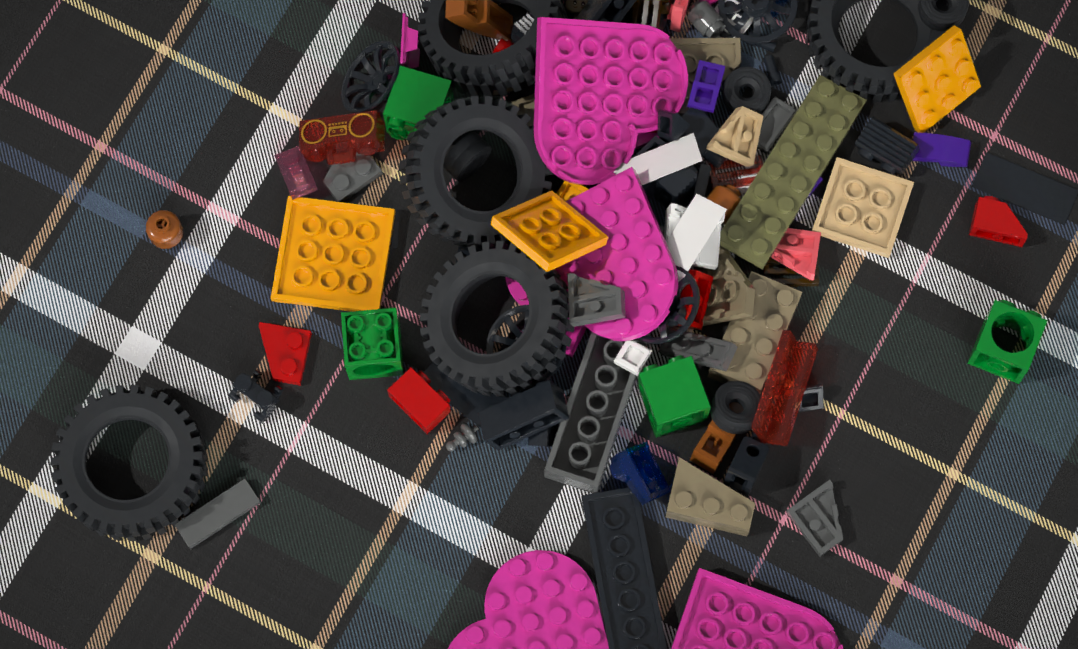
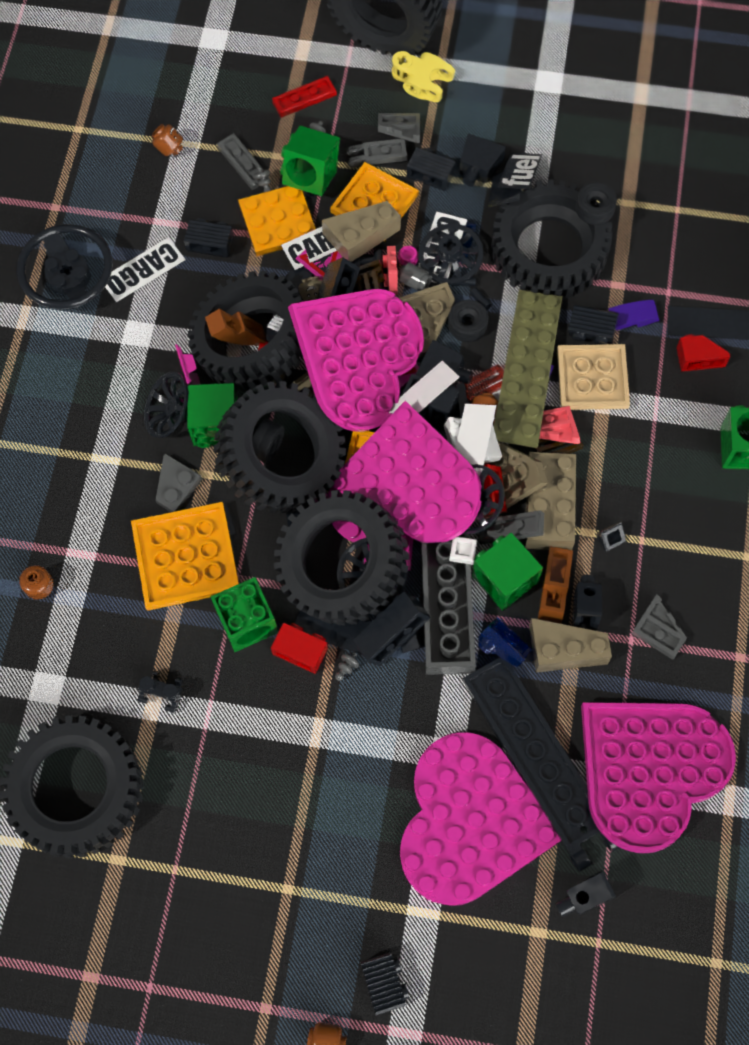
camera: 20 degrees left, 5 degrees down
(217, 513) = (162, 803): dark grey tile -> none
(285, 351) = (173, 647): red wing -> none
(295, 172) = (131, 500): clear pink plate -> none
(341, 137) = (158, 459): clear red piece -> none
(549, 230) = (359, 471): light orange plate -> none
(593, 301) = (416, 515): dark grey wing -> none
(671, 125) = (421, 360): black slope -> none
(706, 86) = (436, 324): dark purple slope -> none
(726, 418) = (561, 550): black tyre -> none
(738, 136) = (476, 354): tan wing -> none
(775, 120) = (496, 339): dark grey tile -> none
(784, 390) = (593, 535): clear red fence -> none
(937, 79) = (612, 260): light orange plate -> none

